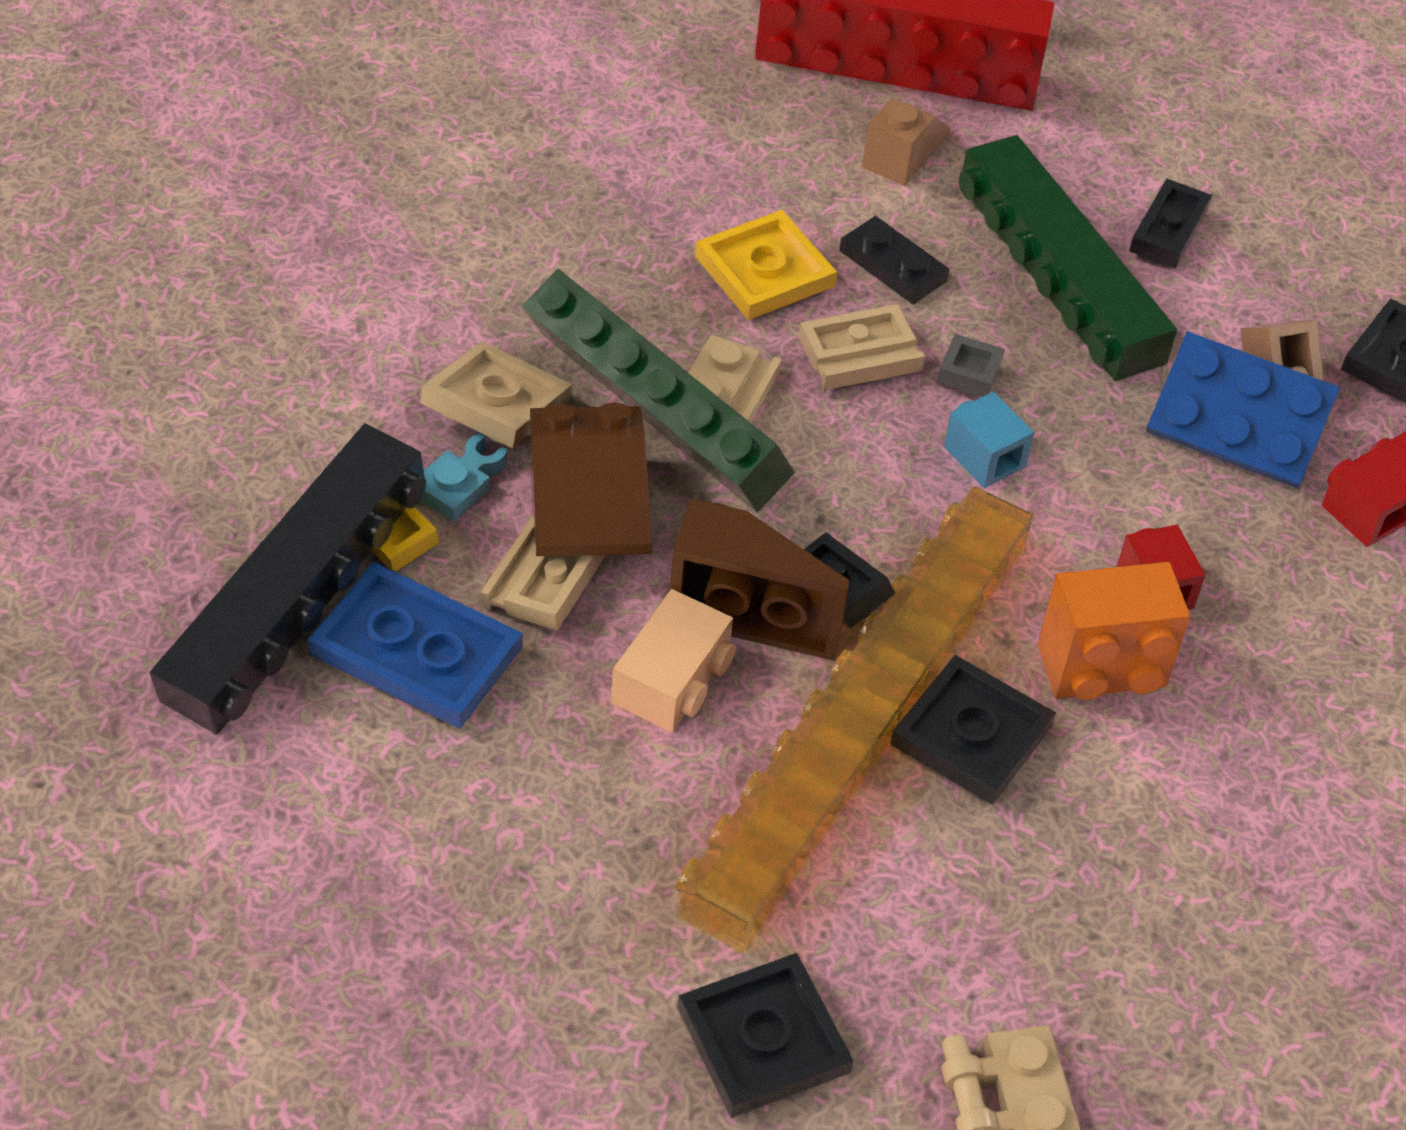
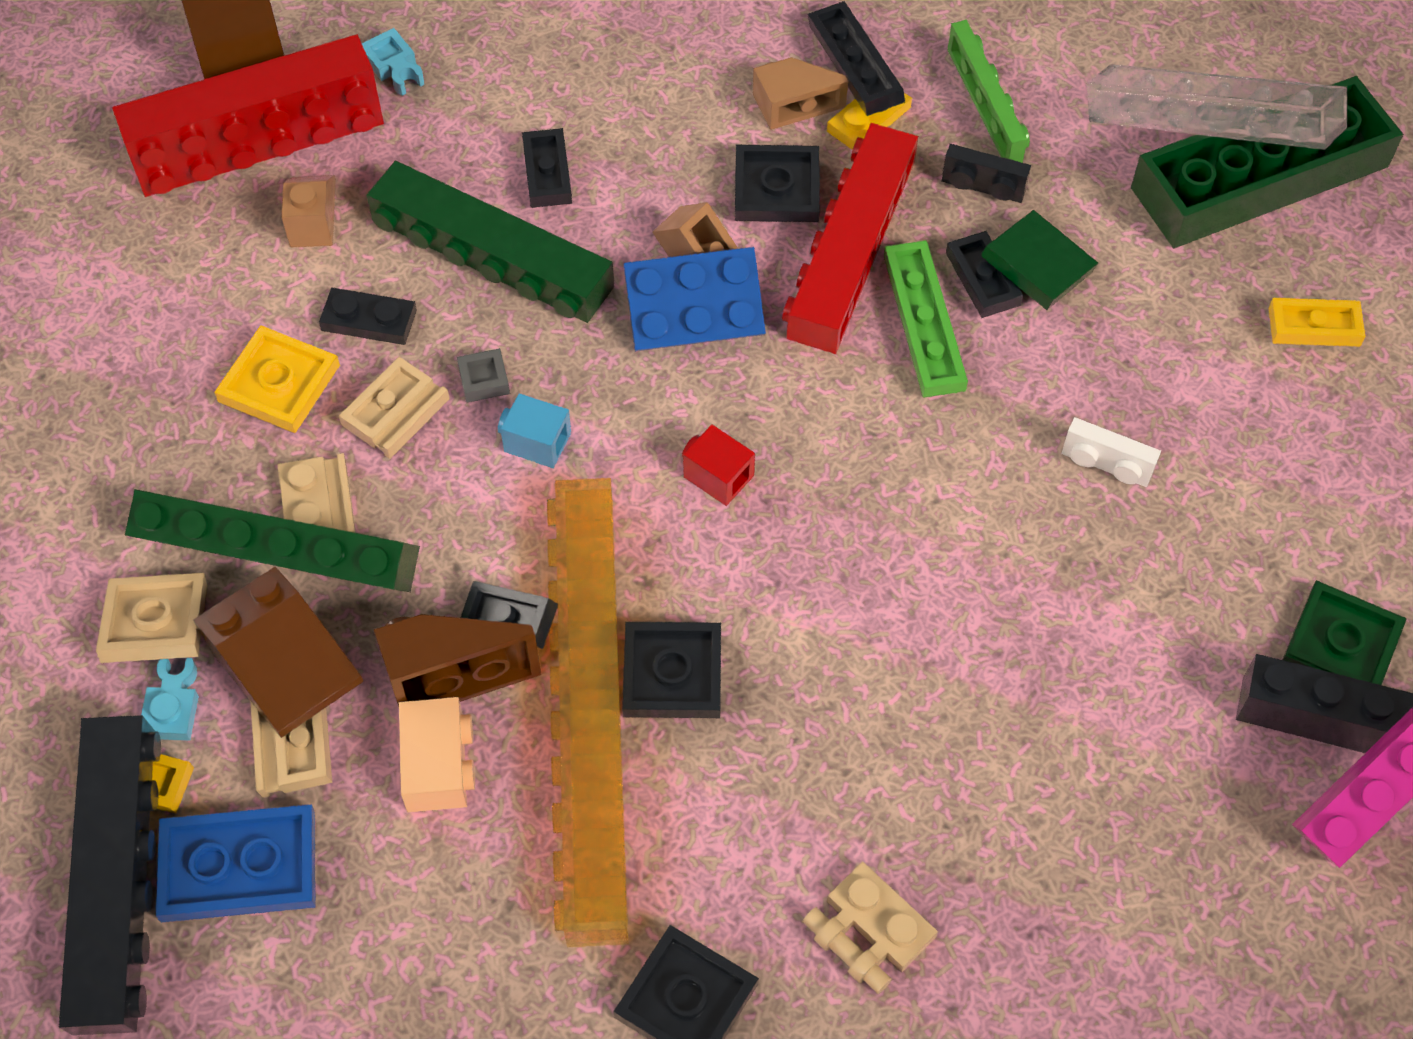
camera: 30 degrees left, 10 degrees up
(1080, 56) = (393, 57): none -> medium azure plate
(1112, 630) = (722, 538): orange brick -> none

